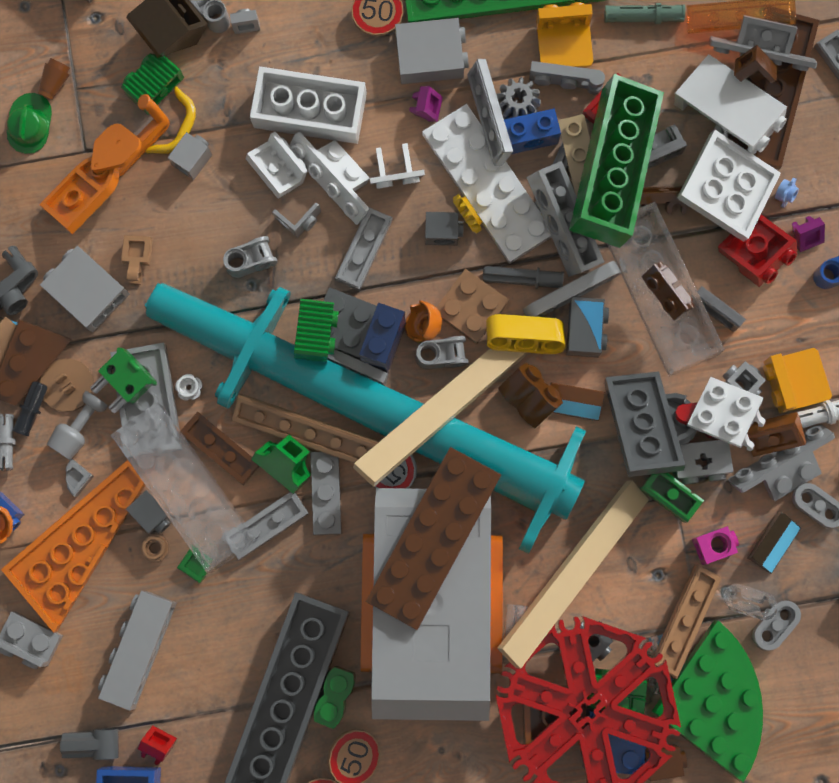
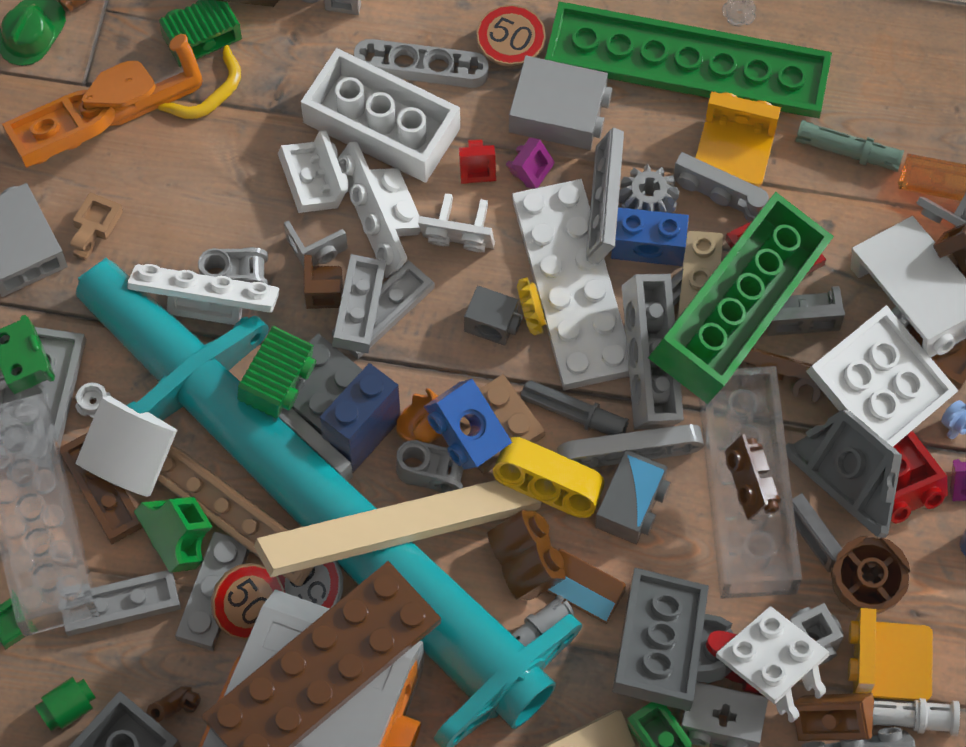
camera: 15 degrees right, 15 degrees down
(190, 155) = (211, 127): light grey brick -> none
(229, 417) = (126, 446): none -> white slope
(236, 285) = (203, 295): none -> white bracket
(258, 608) = (65, 704): none -> green brick
(315, 246) = (322, 285): none -> reddish brown panel
(319, 48) = (422, 58): none -> light grey beam
(327, 585) = (173, 703): none -> reddish brown arm
(348, 254) = (359, 303): none -> light grey plate
(352, 496) = (240, 597): none -> piece
(389, 116) = (477, 162): none -> red tile
(474, 322) = (486, 432): none -> blue brick
(556, 439) = (546, 618): none -> light grey pin
(731, 257) = (852, 468): none -> dark grey wing
(768, 329) = (870, 574): none -> reddish brown cylinder

